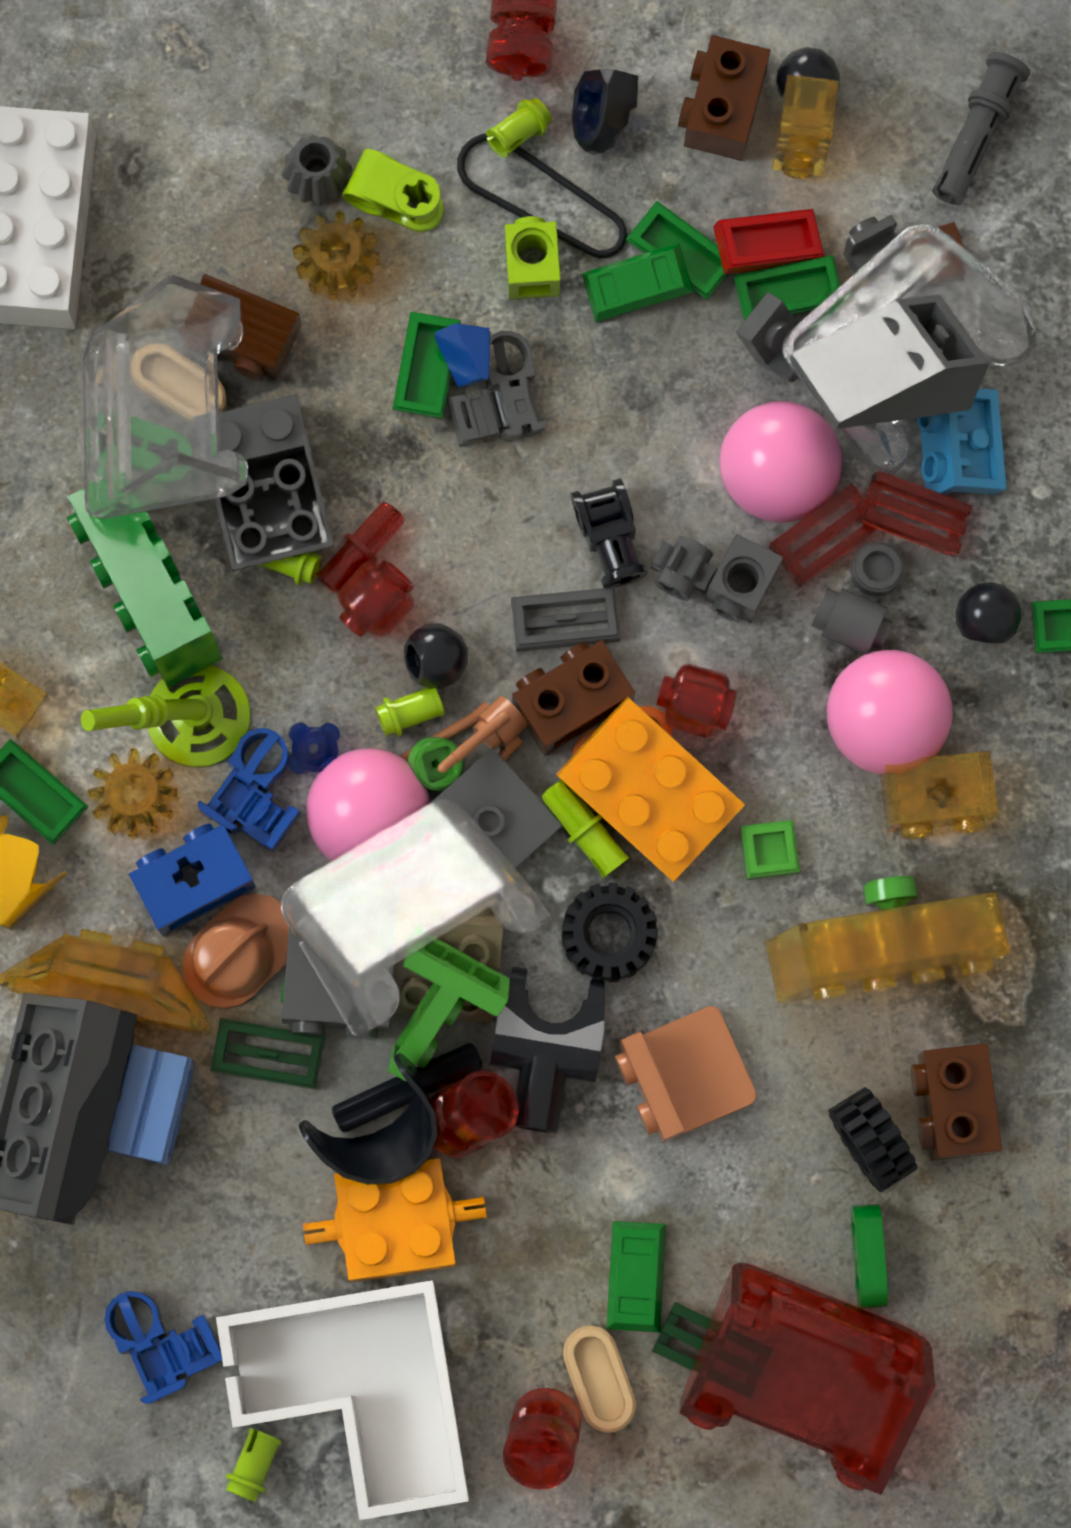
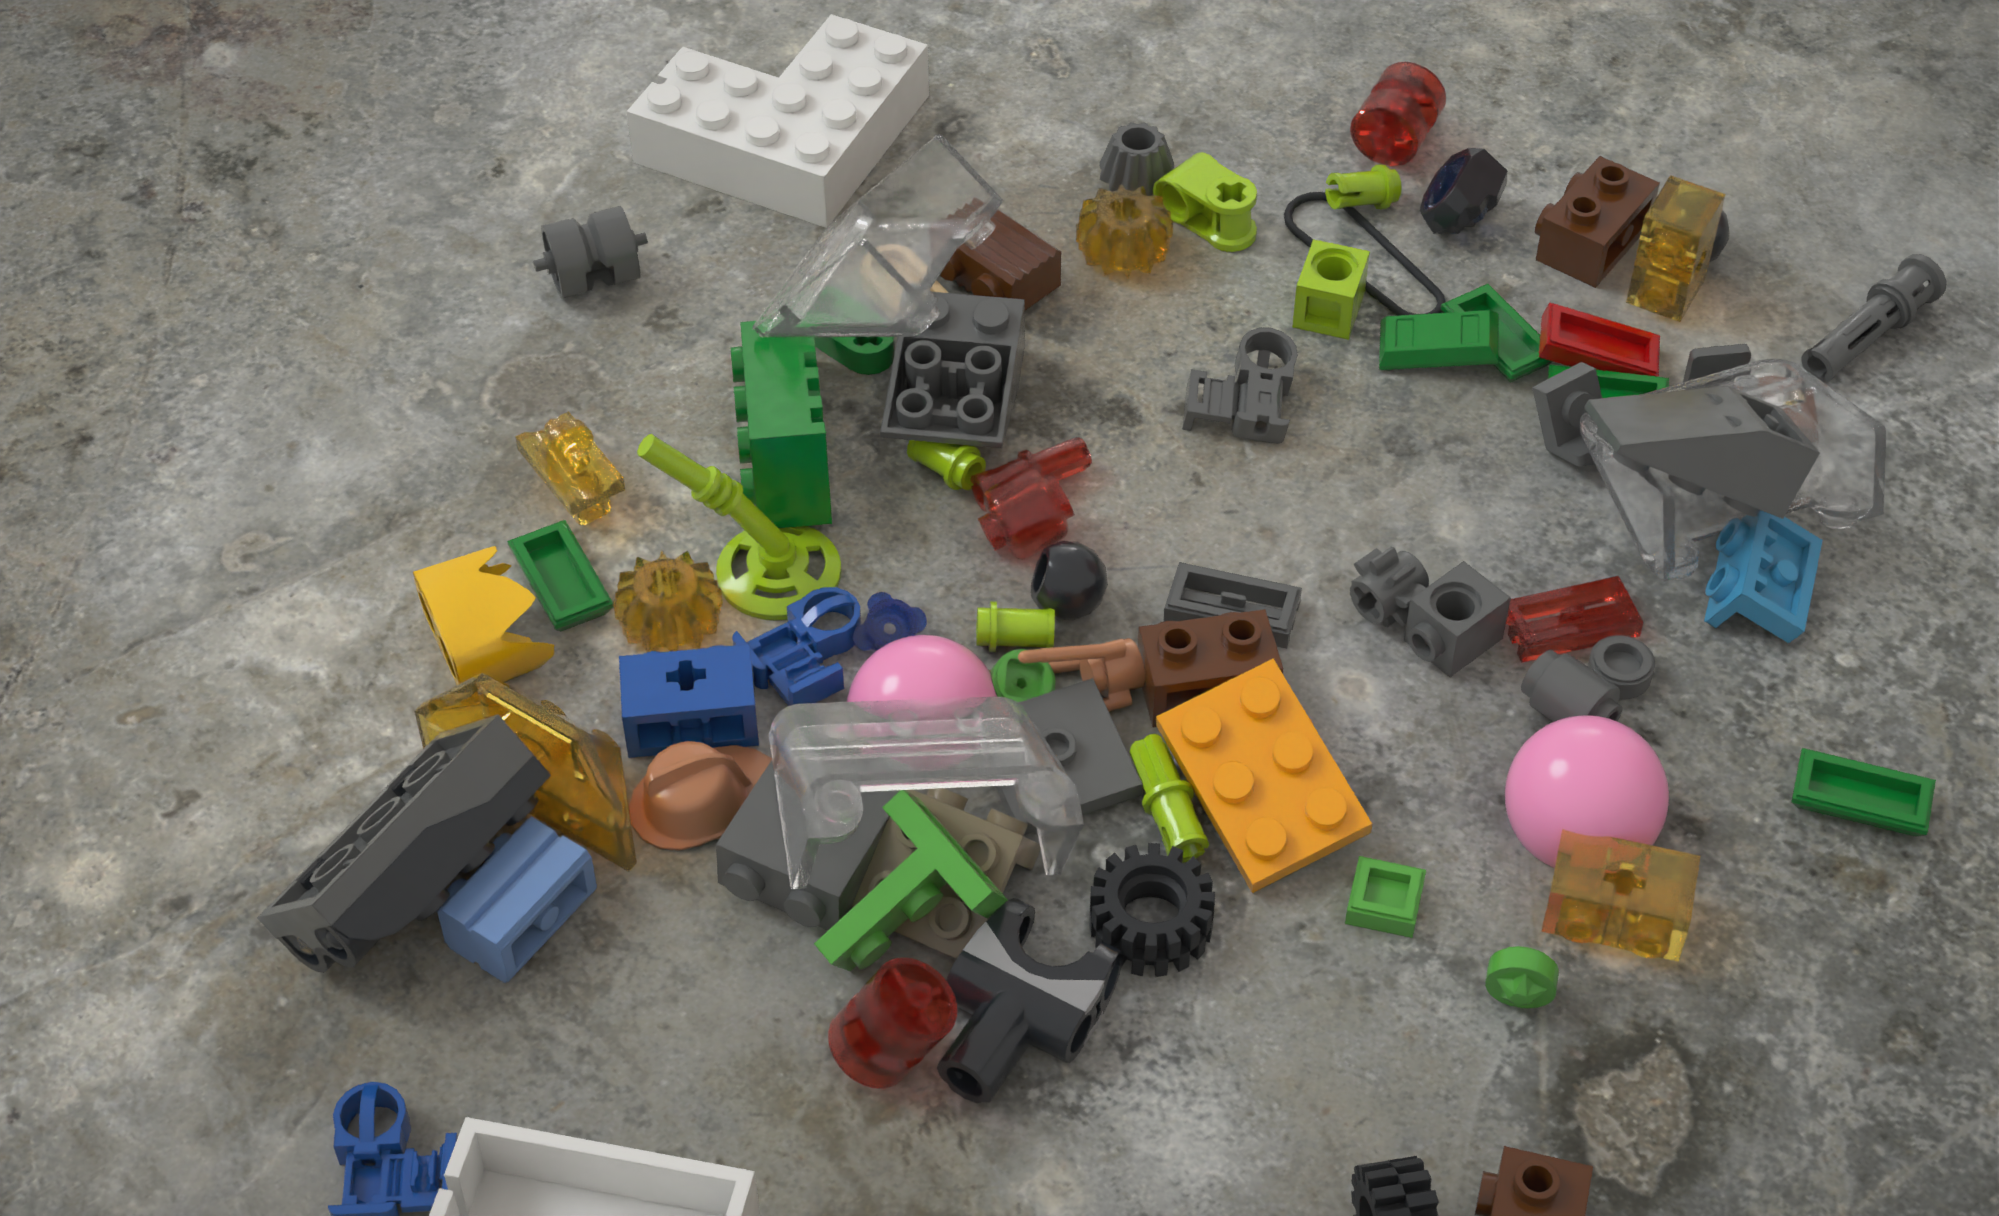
camera: 25 degrees right, 30 degrees down
(313, 1061) = (677, 913): dark green tile -> none
(389, 1152) = (774, 1047): black piece -> none
(395, 1225) = (750, 1119): light orange plate -> none
(398, 1093) = (794, 992): black axle -> none
(423, 370) = (1176, 347): green tile -> none
(465, 352) = (1223, 328): blue slope -> none
(608, 525) = (1317, 537): black connector -> none
(685, 1073) = (1180, 1087): nougat bracket -> none
(697, 700) = (1356, 710): clear red head -> none
(780, 461) = (1542, 534): bright pink piece -> none
(887, 946) = (1495, 1025): clear yellow wedge -> none
(924, 496) = (1690, 615): clear red tile -> none
(988, 613) = (1743, 735): black piece -> none

